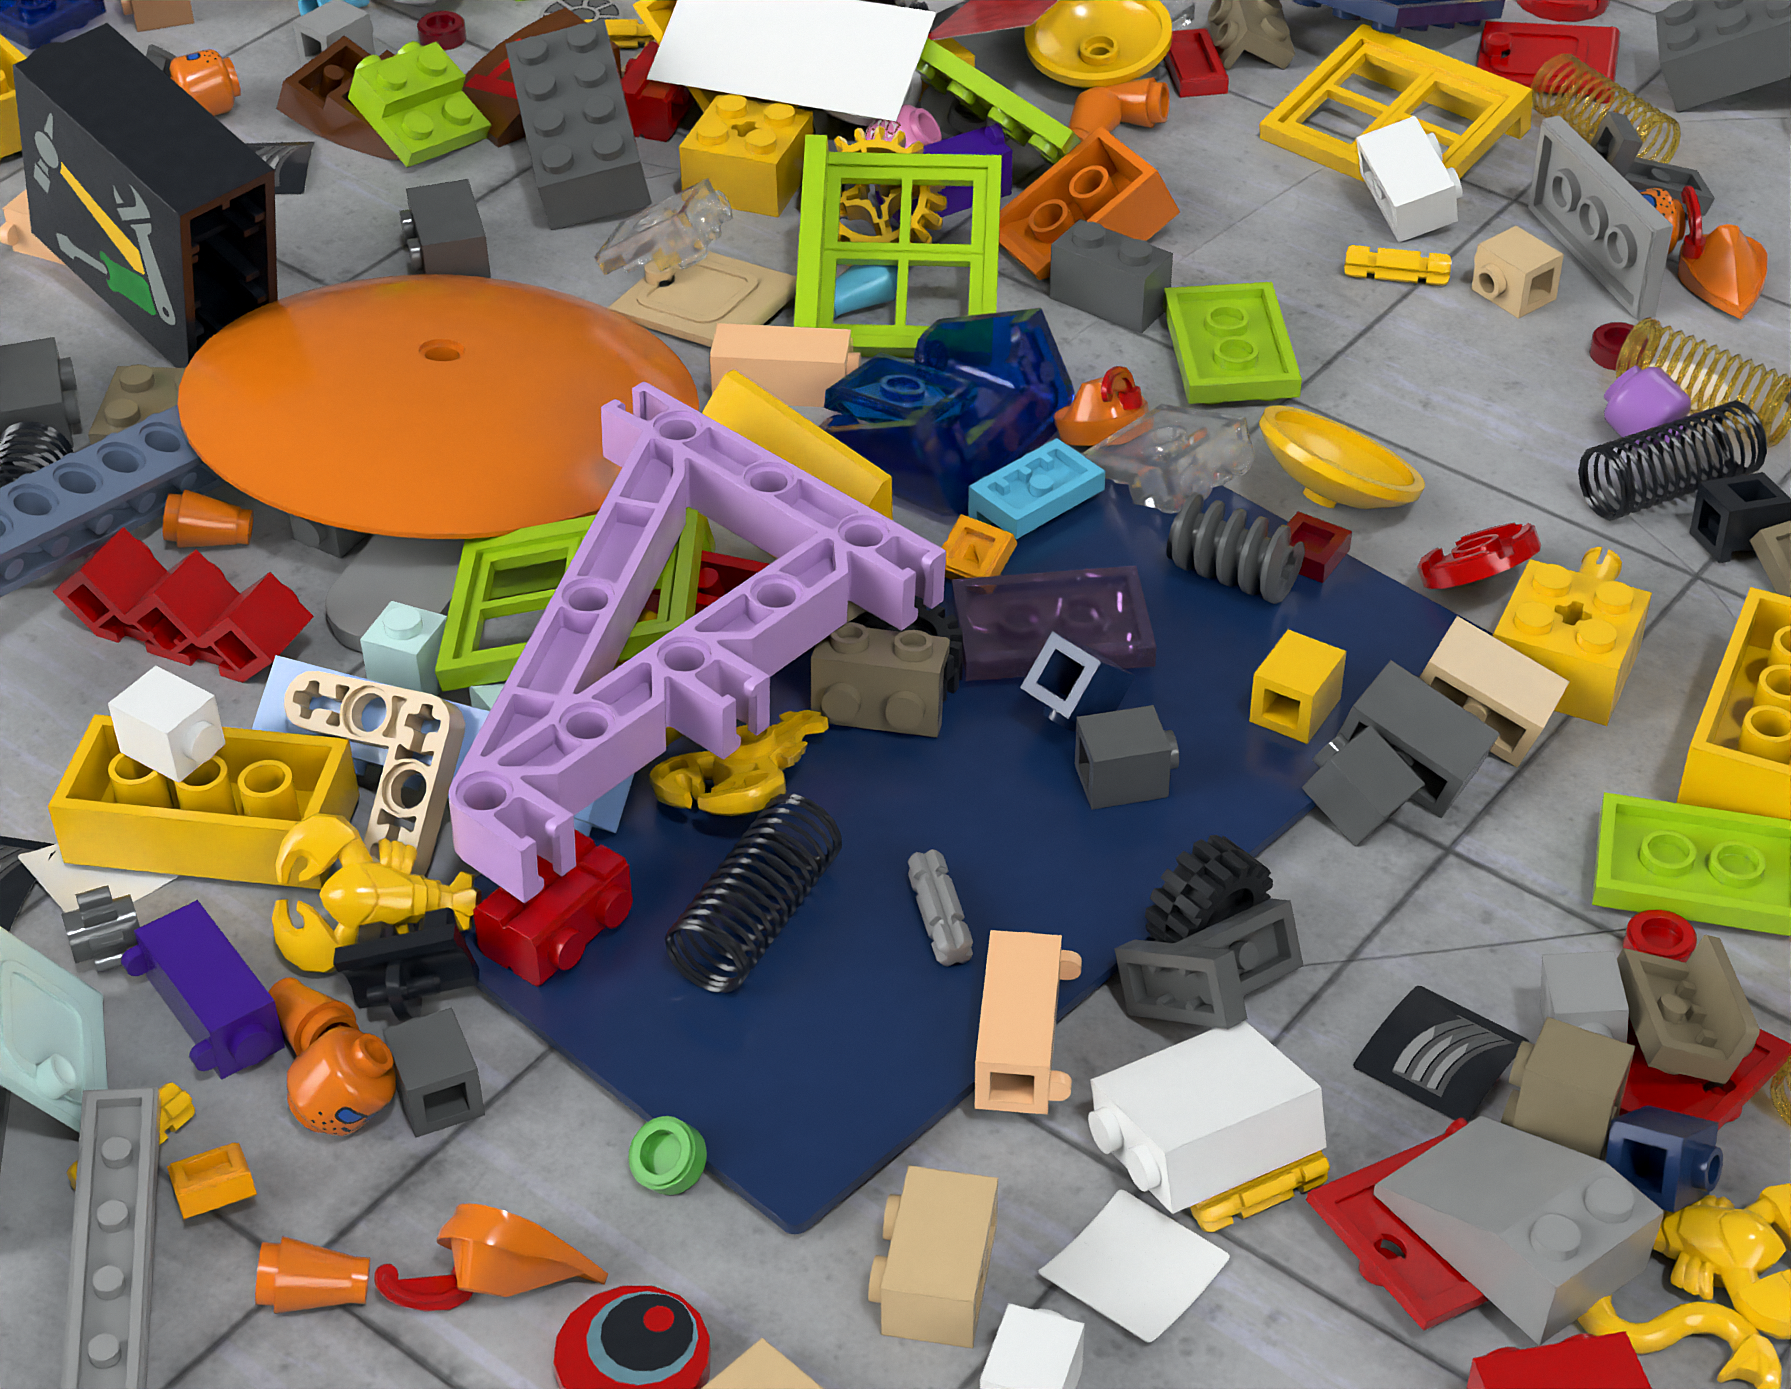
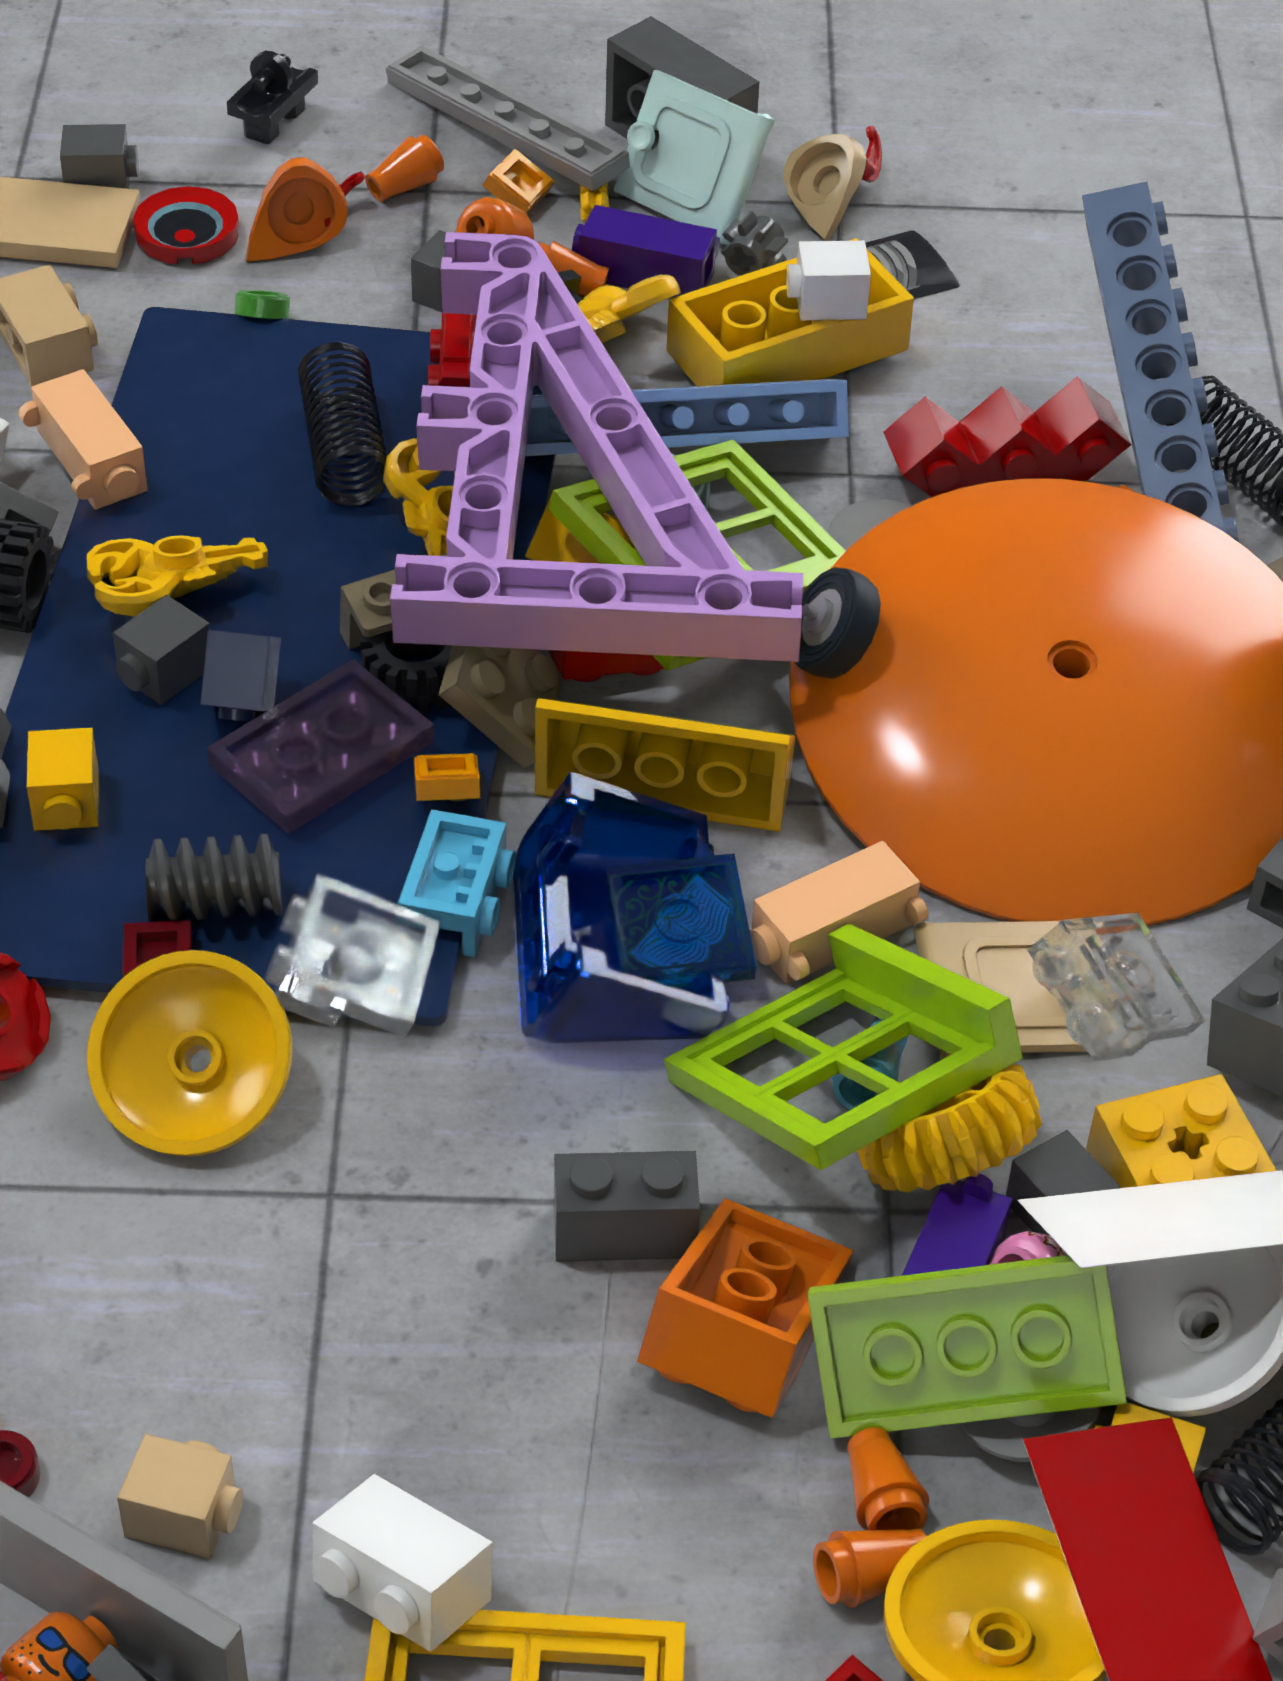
camera: 140 degrees right, 5 degrees up
(398, 734) = (710, 371): tan beam -> none
(404, 648) = (807, 477): light aqua brick -> none
(570, 448) = (837, 622): none -> black wheel
(940, 908) = (216, 499): light grey axle -> none
(1058, 834) = (170, 566): none -> yellow animal
(1101, 408) = (473, 1018): orange piece -> none
(1231, 343) = (432, 1203): lime plate -> none
(1397, 265) = (336, 1453): yellow axle -> none

